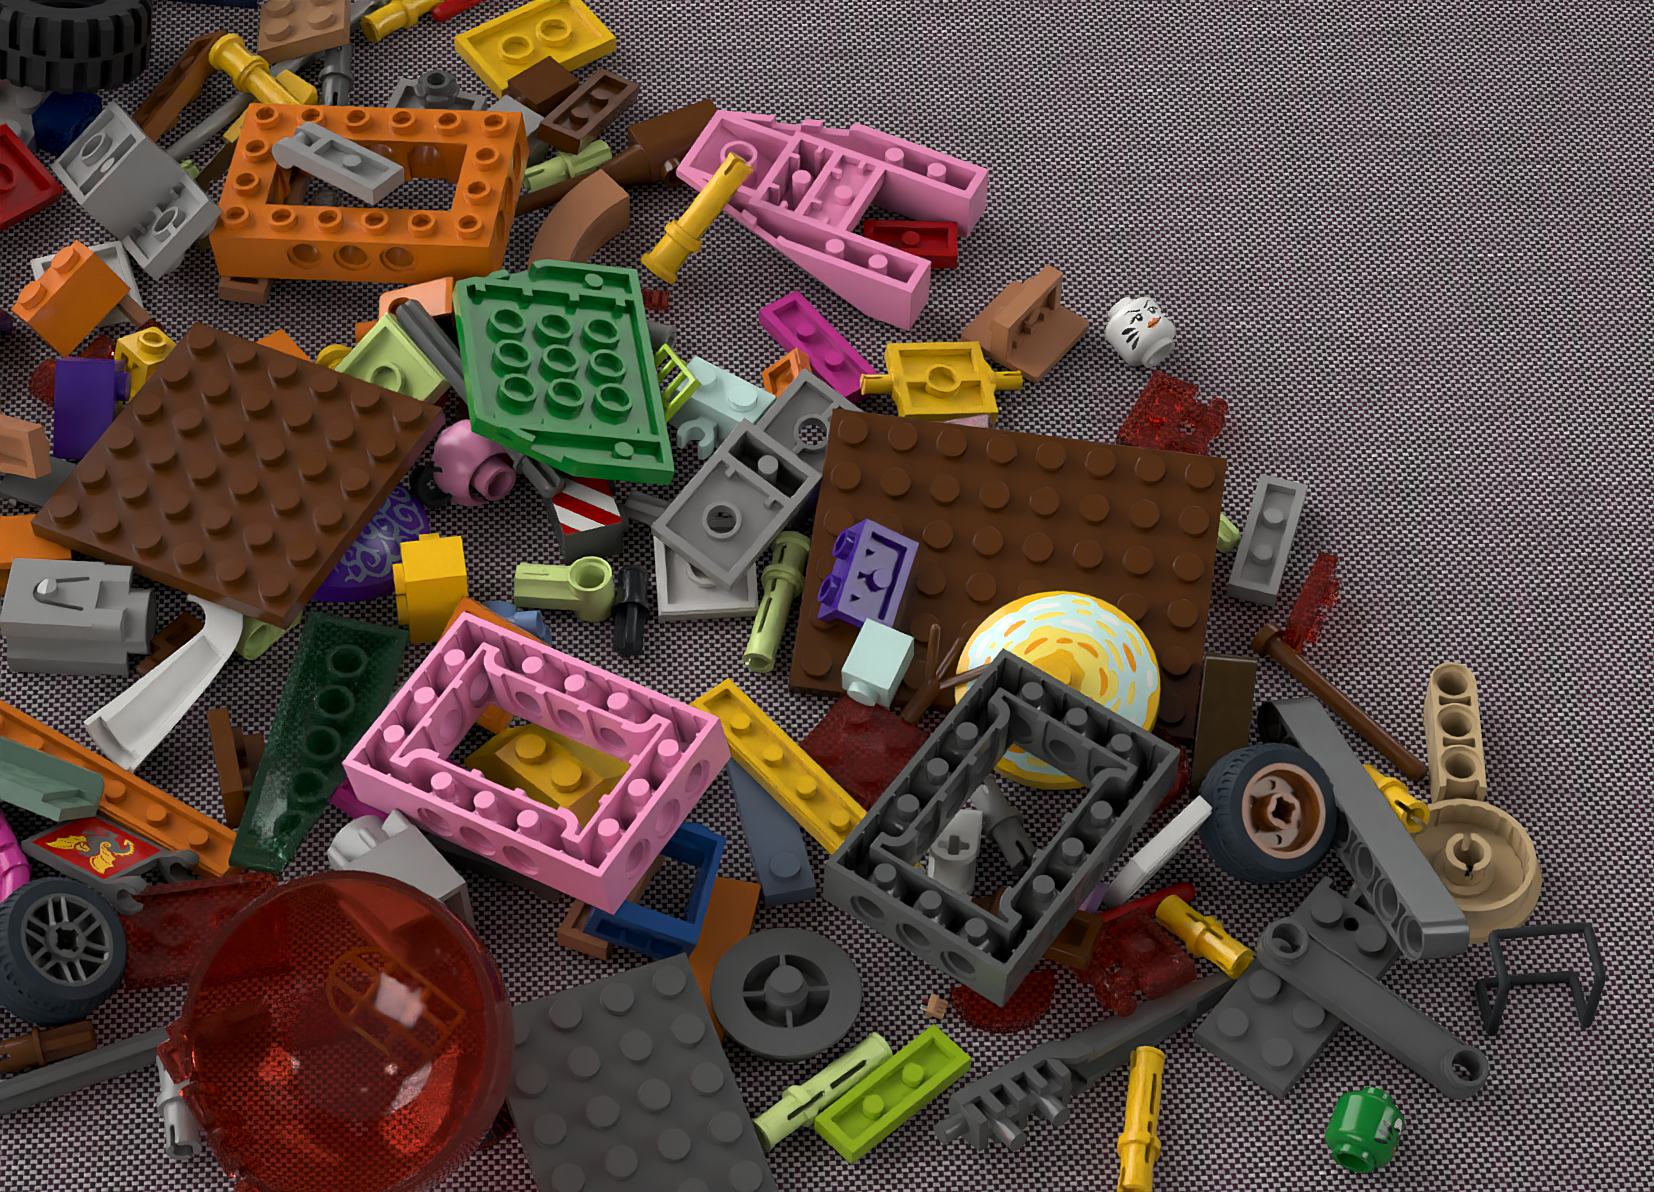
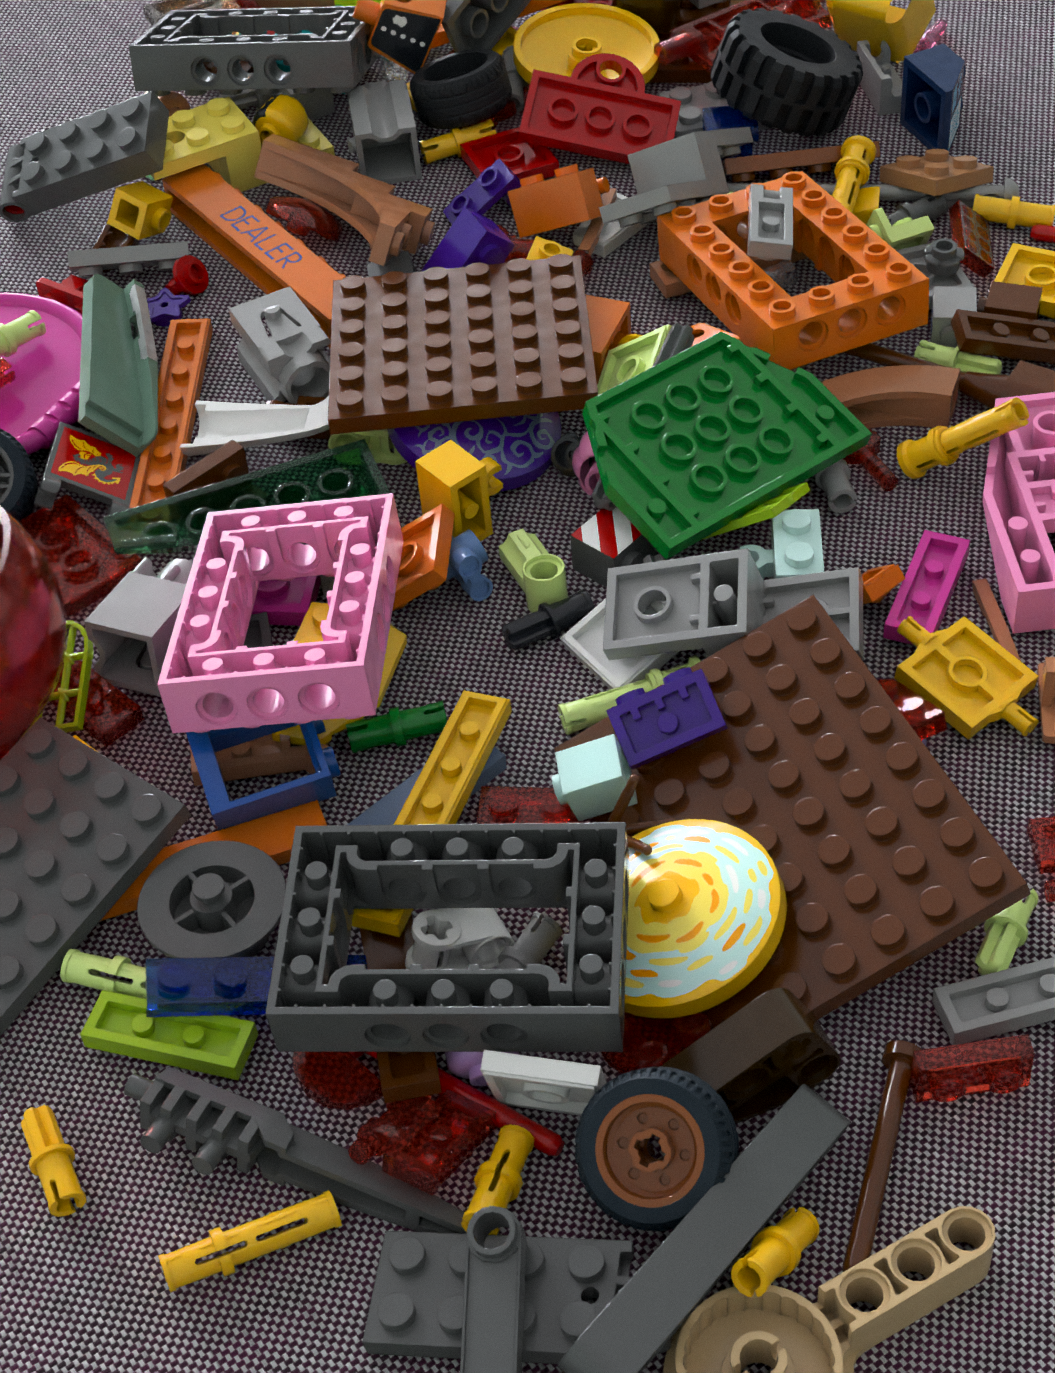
camera: 65 degrees right, 5 degrees down
(365, 92) = (904, 232): none -> yellowish green bracket
(407, 55) = (973, 236): none -> clear red tile
(866, 327) = (993, 615): none -> nougat piece
(889, 1019) = (211, 985): none -> clear blue plate

